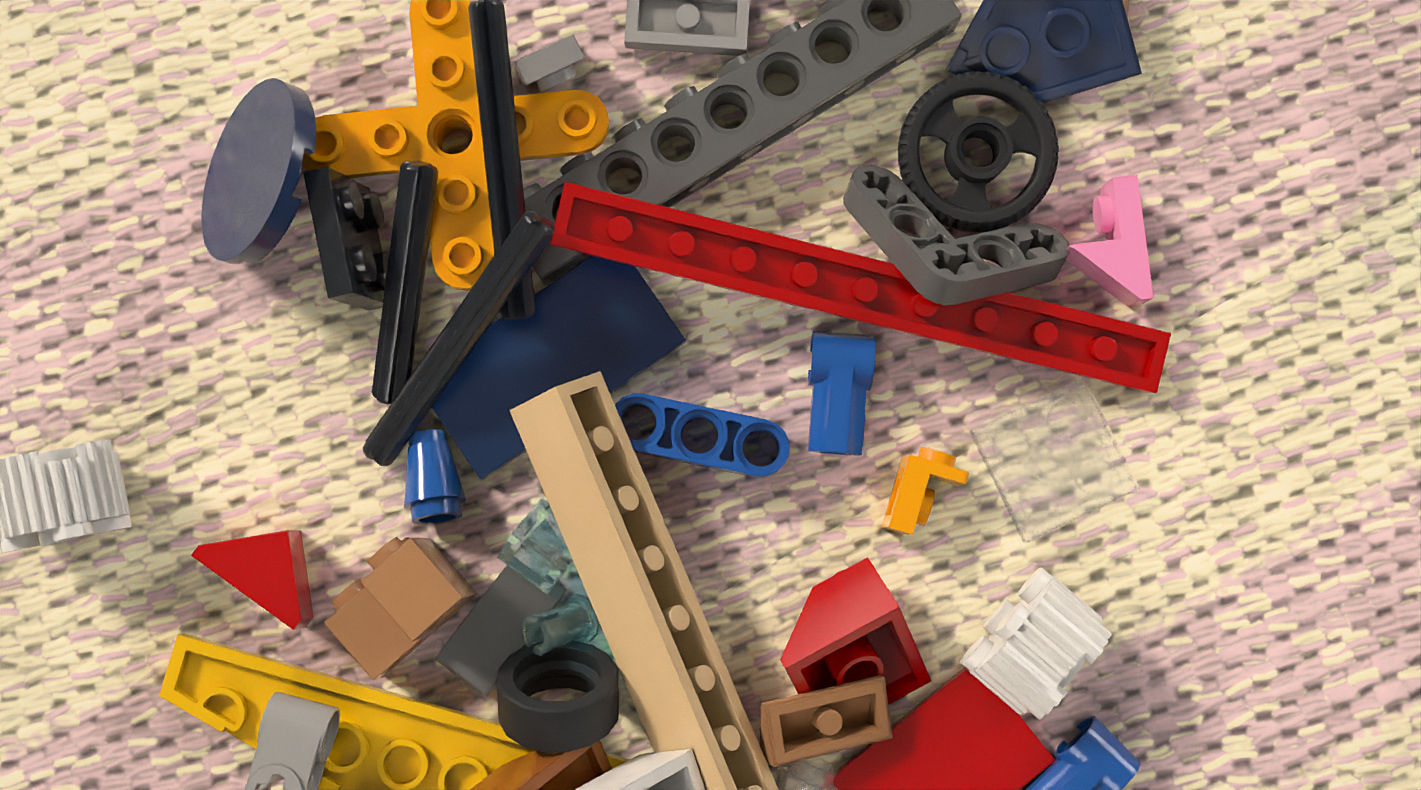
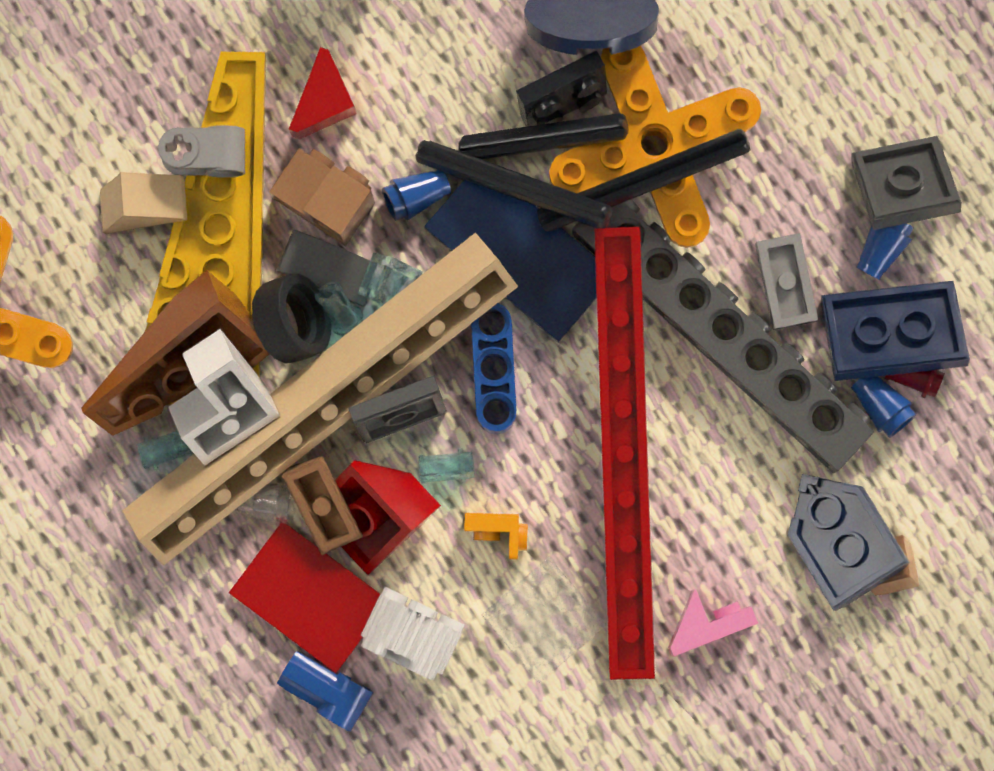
camera: 80 degrees right, 0 degrees up
(550, 64) = (723, 193): light grey plate -> none
(724, 581) = (398, 409): none -> dark grey tile
(815, 535) = (447, 467): none -> clear light blue pin
(839, 381) = (560, 456): blue piece -> none
(935, 262) = (654, 504): dark grey beam -> none
(1029, 134) = (763, 473): black wheel -> none

